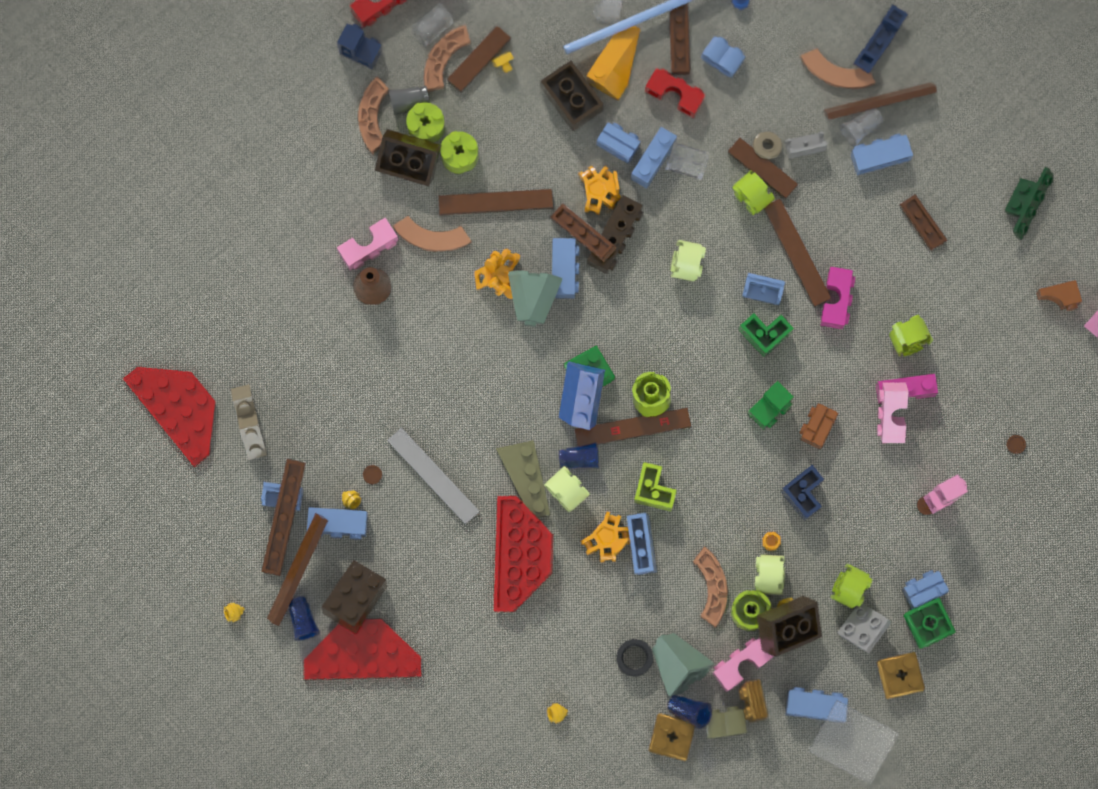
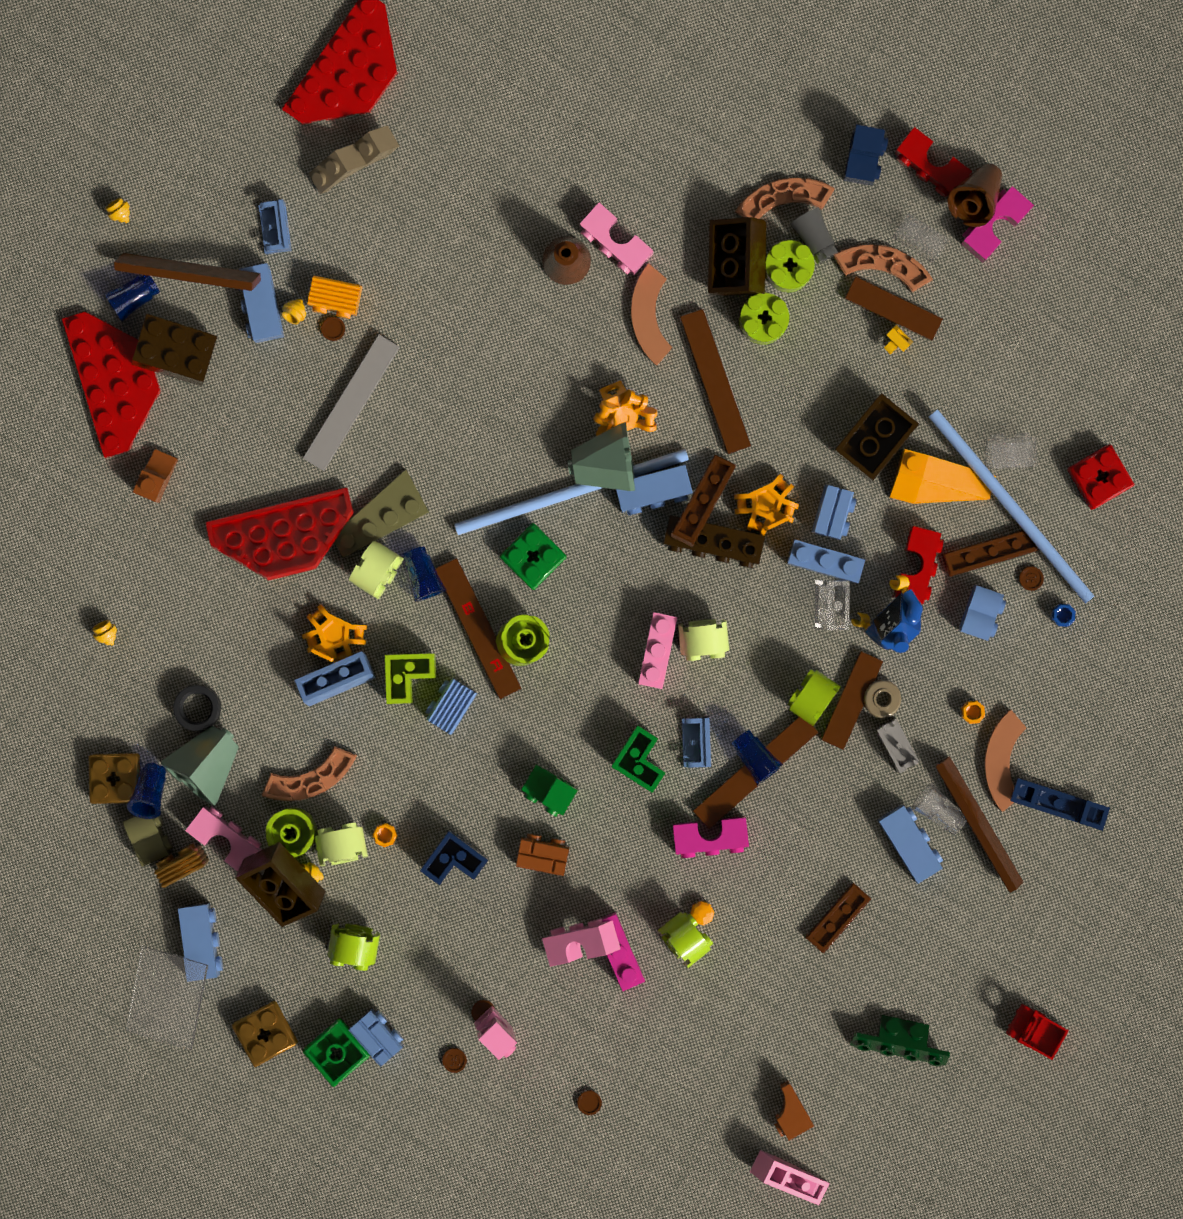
camera: 80 degrees right, 10 degrees up
(283, 517) = (247, 236): reddish brown tile -> none
(348, 465) = (334, 296): none -> light orange brick
(447, 640) = (155, 476): none -> dark orange arch
(548, 341) = (562, 495): none -> light blue piece
(581, 395) = (496, 555): blue slope -> none
(680, 293) = (657, 650): none -> bright pink arch
(685, 463) = (451, 705): none -> medium blue brick
(707, 15) = (1031, 578): none -> reddish brown piece
(714, 115) = (897, 622): none -> torso
(786, 246) = (756, 757): none -> clear blue plant
(795, 83) = (972, 712): none -> light orange tile
(864, 628) = (308, 975): light grey plate -> none
(892, 318) = (702, 912): none -> light orange tile
(958, 537) = (454, 1060): none -> reddish brown piece
(1045, 101) = (1037, 1031): none -> red piece

